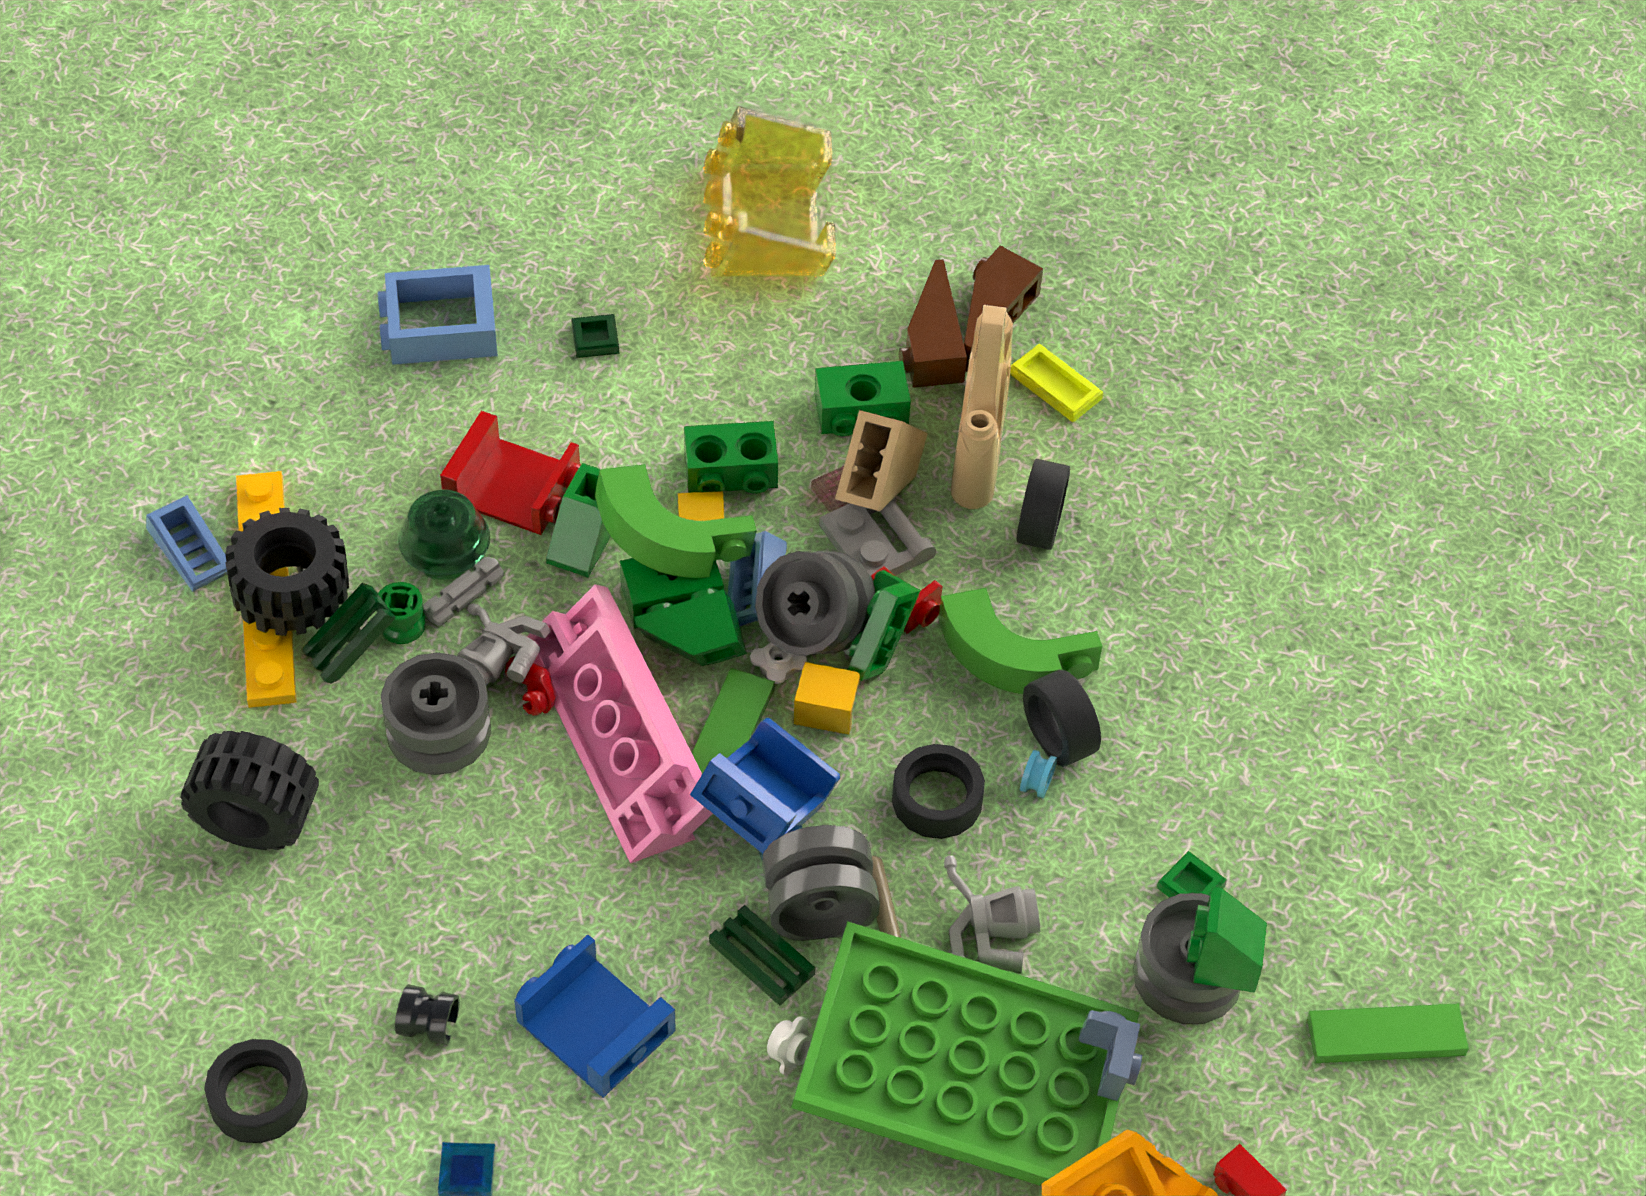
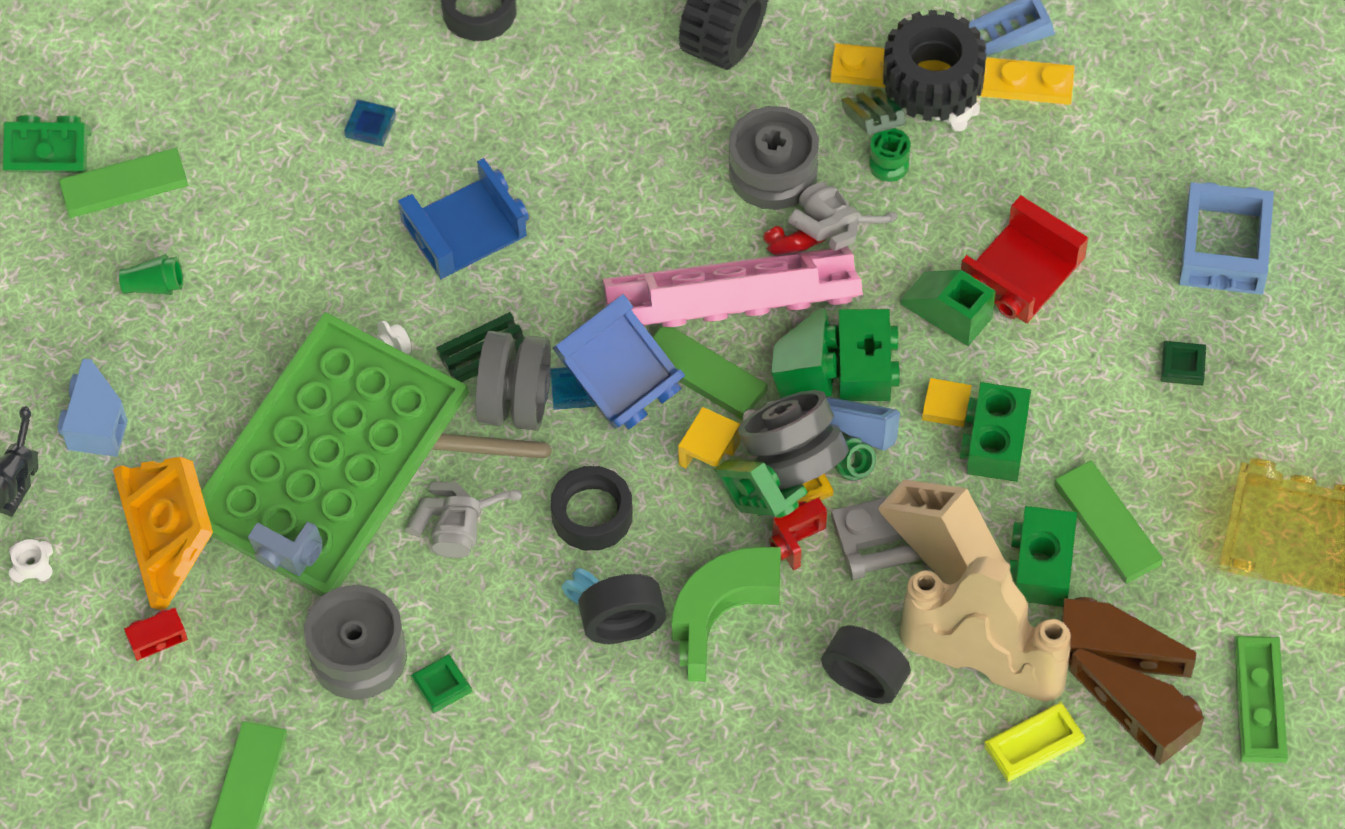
camera: 110 degrees right, 5 degrees up
(422, 1013) = (504, 111): black wheel -> none
(443, 535) = (966, 199): clear green cone -> none
(463, 591) = (908, 208): light grey axle -> none
(660, 537) = (896, 313): bright green arch -> none
(795, 365) = (1108, 522): none -> bright green tile
(946, 231) = (1260, 699): none -> bright green tile
(1227, 943) = (319, 622): green slope -> none

